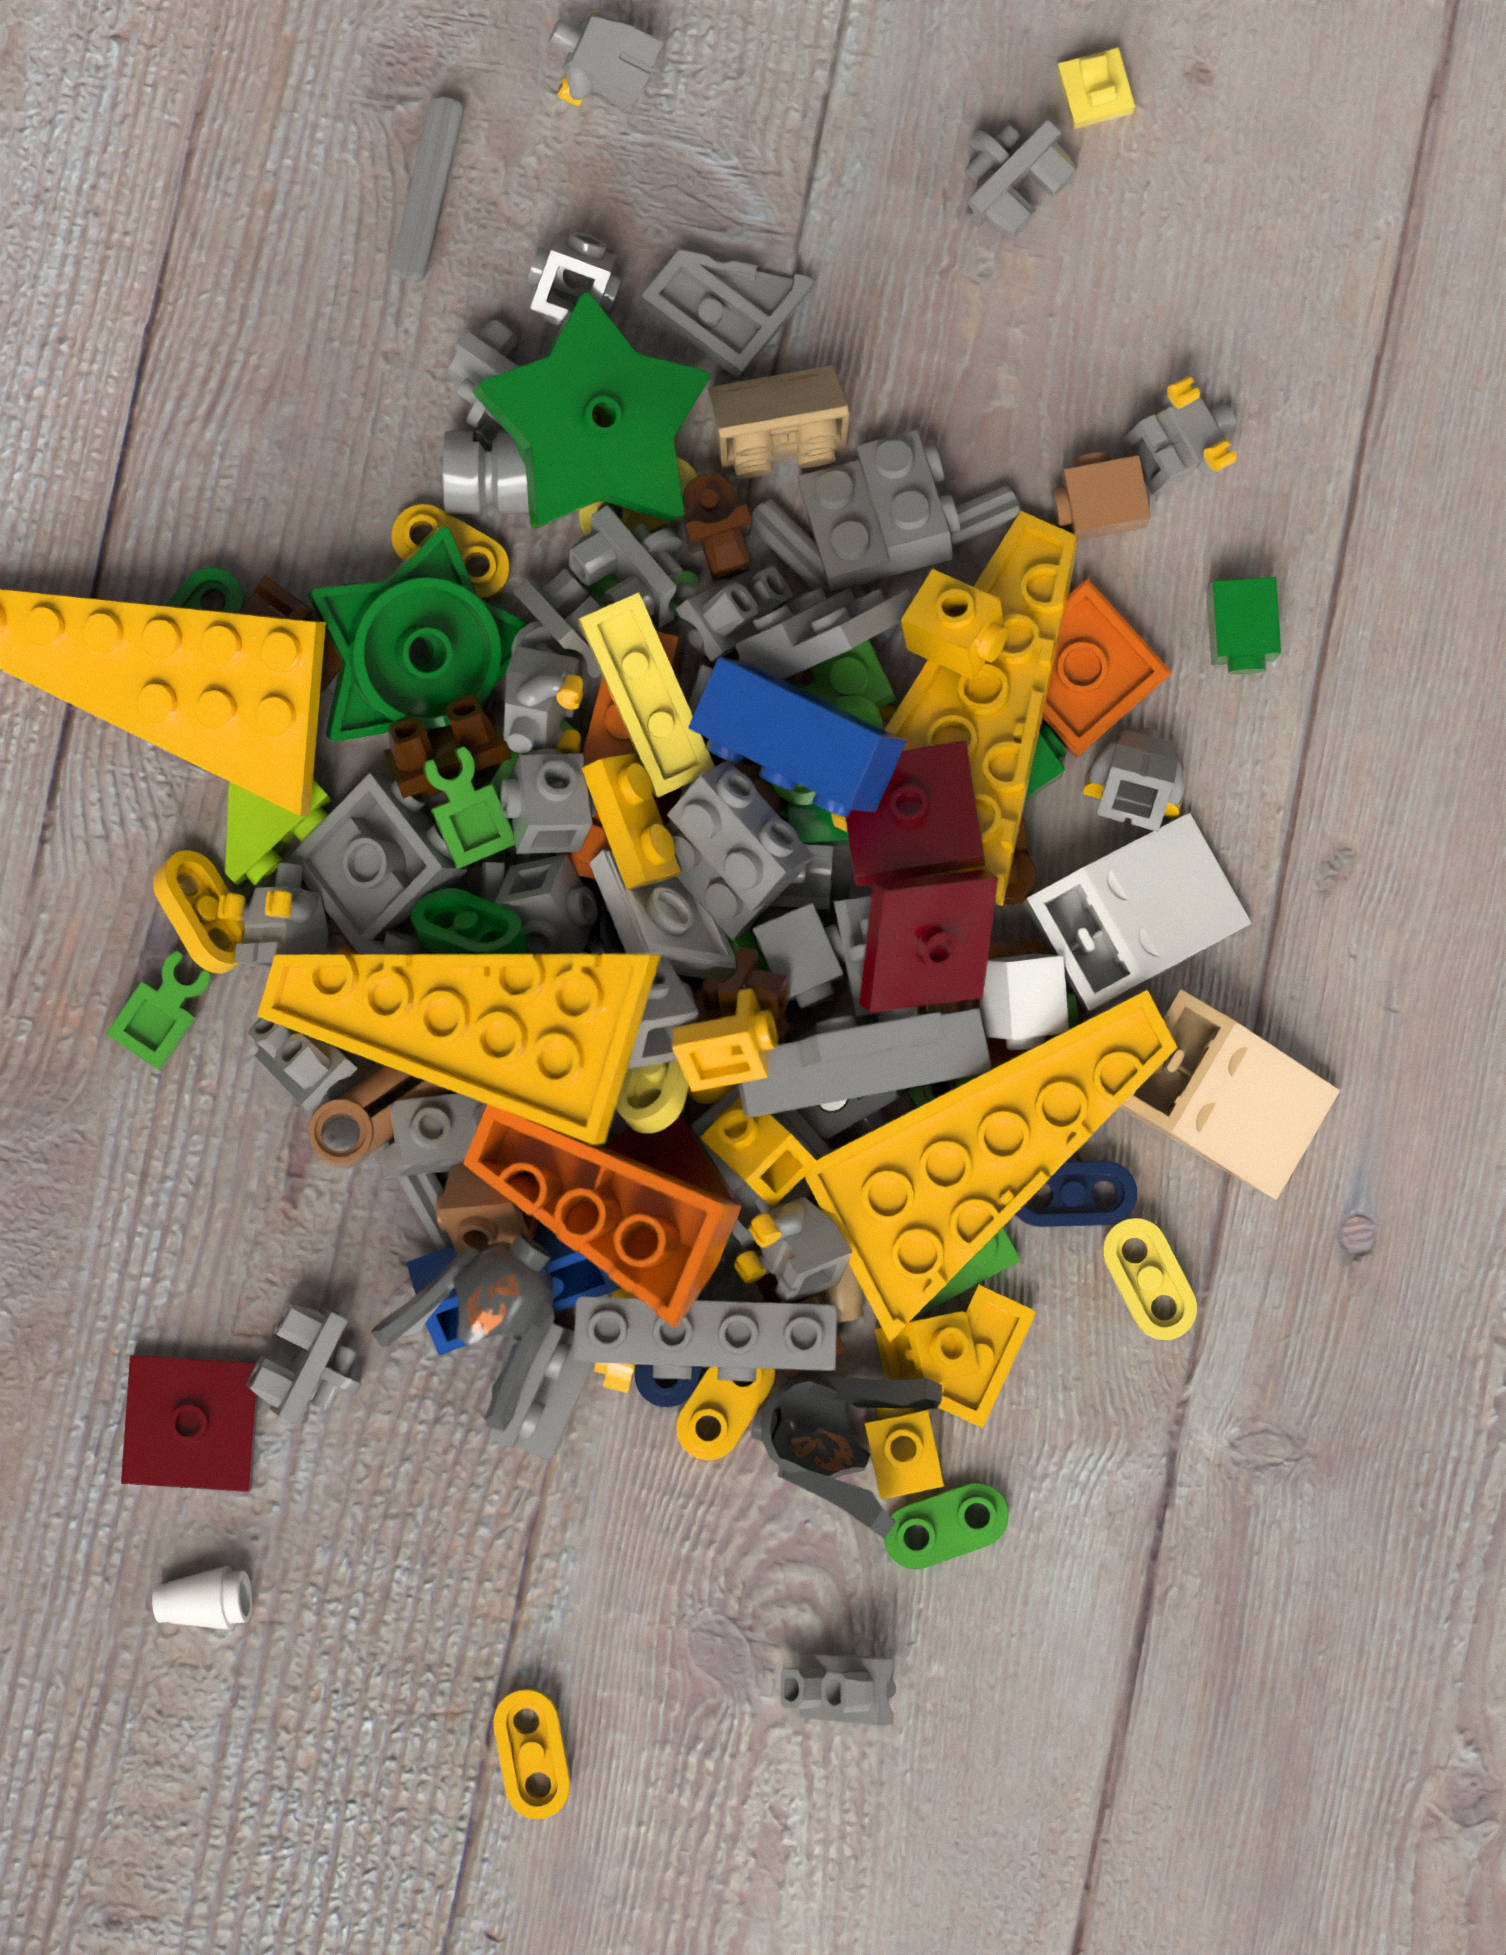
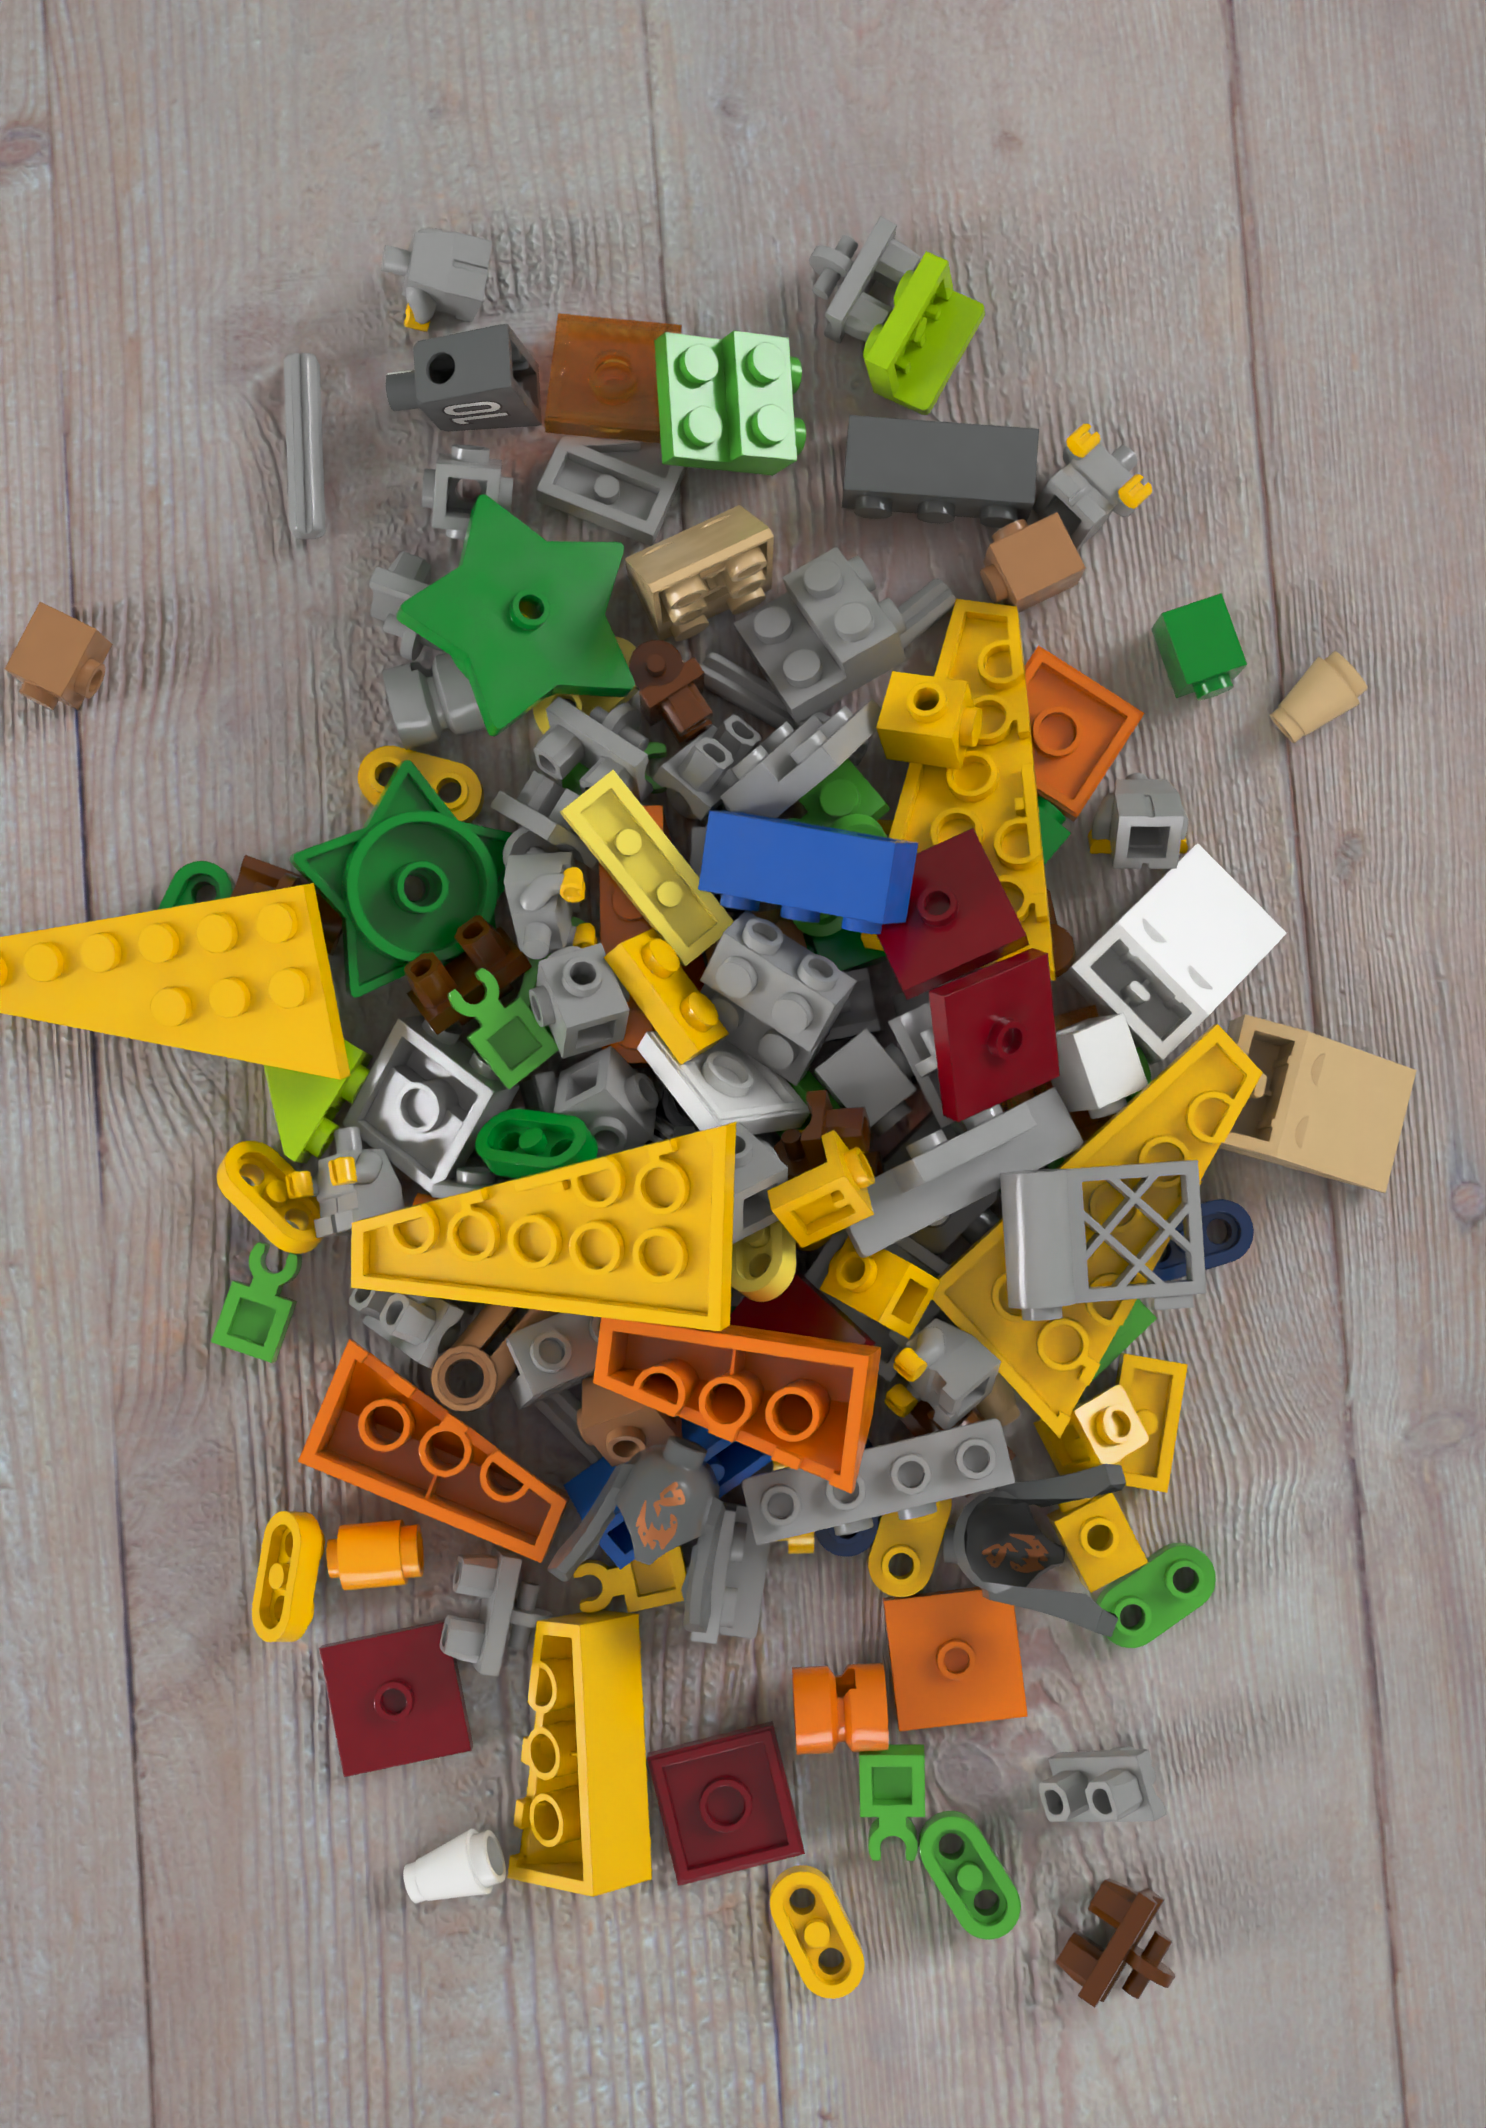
camera: 15 degrees left, 0 degrees up
(118, 1277) = (287, 1576): none -> yellow plate
(134, 335) = (59, 659): none -> medium nougat brick
(209, 1279) = (375, 1554): none -> light orange brick
(273, 1188) = (418, 1454): none -> orange wedge
(356, 1525) = (586, 1758): none -> yellow wedge
(459, 1375) = (640, 1583): none -> yellow plate
(478, 1608) = (725, 1803): none -> dark red plate
(605, 173) = (470, 381): none -> dark grey torso
(611, 1546) = (840, 1708): none -> orange wheel
(642, 1639) = (892, 1791): none -> bright green plate
(692, 1739) = (967, 1873): none -> bright green plate
(735, 1532) = (953, 1659): none -> orange plate
(746, 205) = (605, 378): none -> clear orange plate
(796, 1862) = (1100, 1968): none -> reddish brown hips
(851, 260) = (728, 402): none -> plate
(927, 1152) = (1049, 1247): none -> light grey piece
(1038, 381) = (939, 470): none -> dark grey brick
(1057, 247) = (922, 337): none -> lime bracket
(1095, 88) = (914, 181): light yellow tile -> none
(1151, 1277) = (1284, 1301): light yellow plate -> none
(1347, 703) = (1320, 695): none -> tan cone

